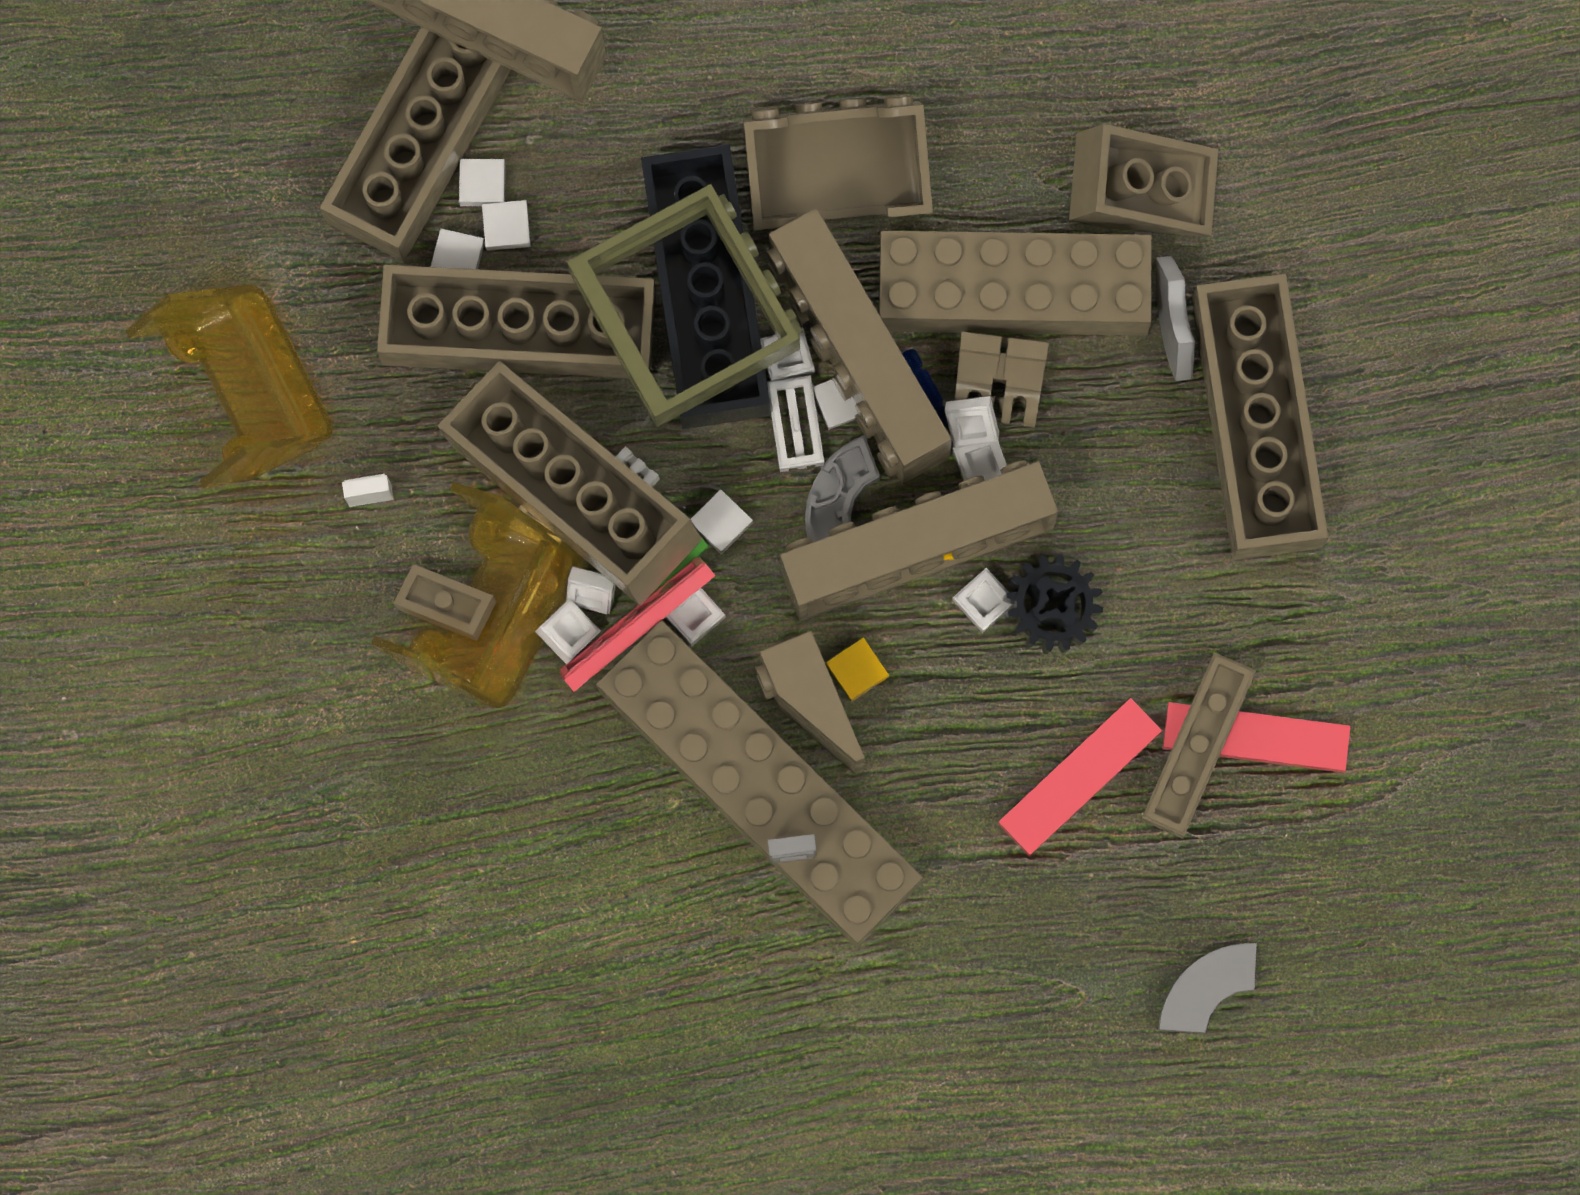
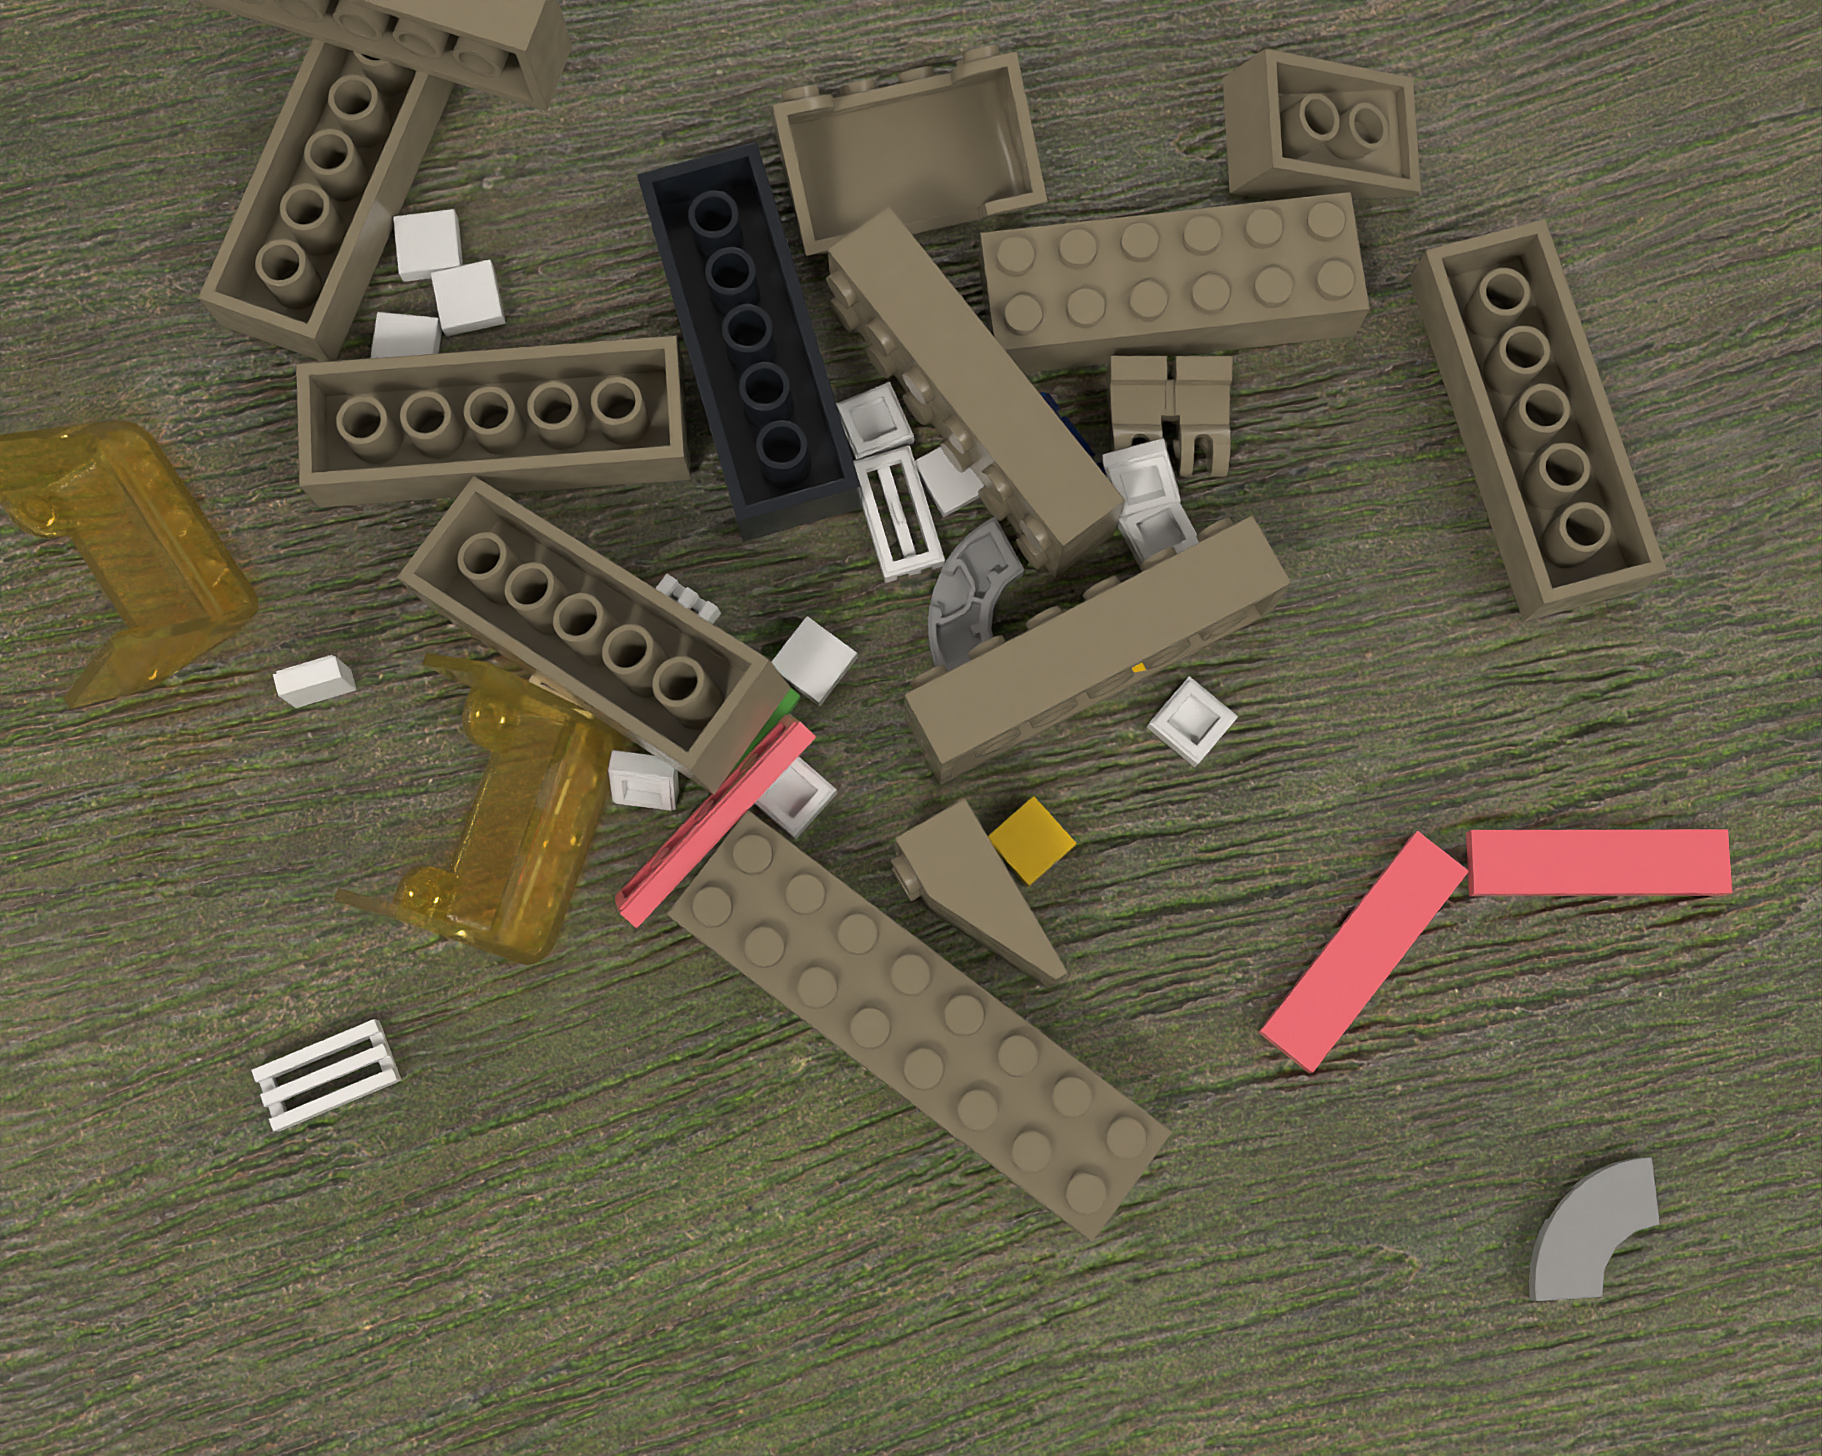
camera: 10 degrees left, 0 degrees up
(323, 753) = (274, 1096): none -> white tile
(445, 602) = (441, 824): dark tan plate -> none
(568, 631) = (619, 841): white tile -> none
(741, 249) = (794, 278): olive window -> none
(792, 848) = (982, 1121): light grey tile -> none
(1062, 618) = (1271, 699): black gear -> none
(1173, 318) = (1393, 311): light grey tile -> none
(1198, 745) = (1525, 886): dark tan tile -> none

